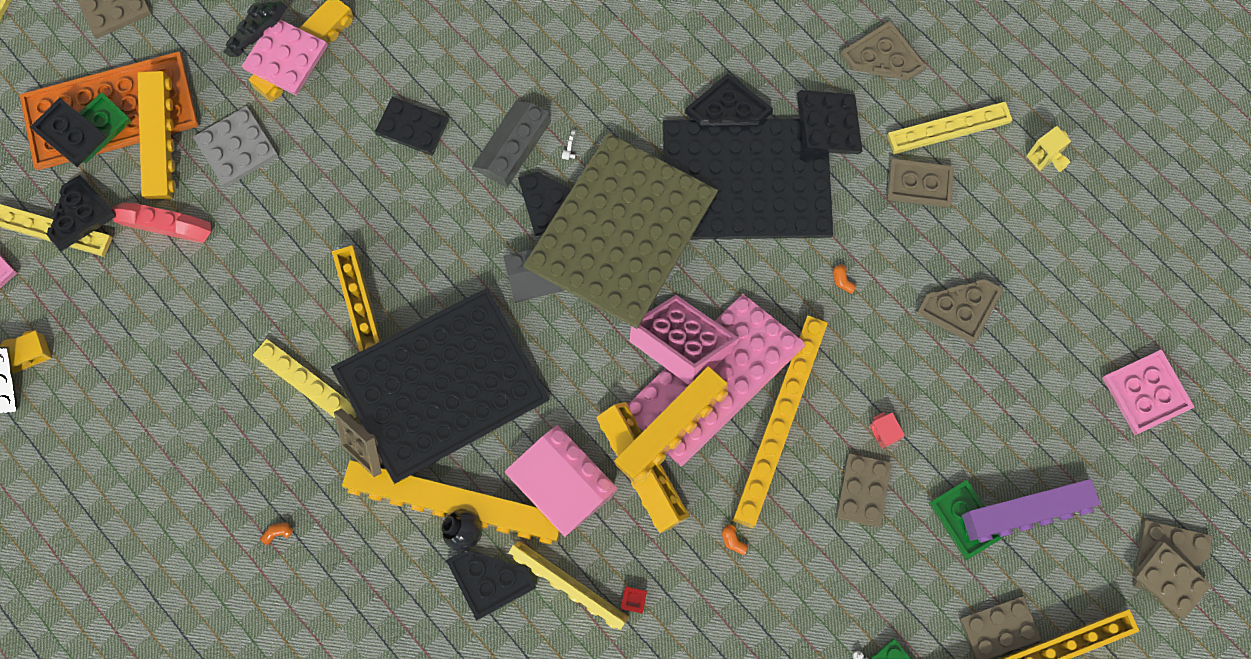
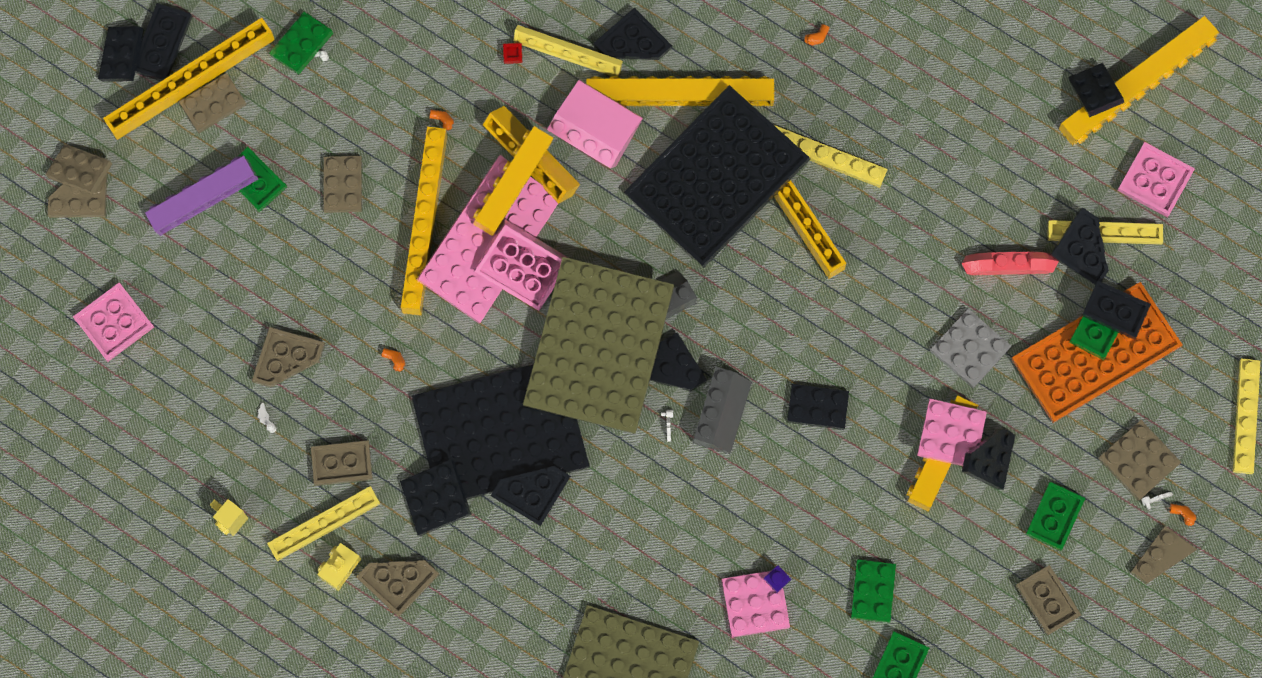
camera: 165 degrees right, 0 degrees up
(155, 135) = (1041, 332): yellow brick -> none
(358, 442) = (769, 110): dark tan plate -> none
(461, 533) = (665, 66): black plant -> none
(886, 429) = (332, 235): coral brick -> none
(941, 81) = (338, 566): none -> light yellow brick
(994, 251) = (264, 418): none -> white piece

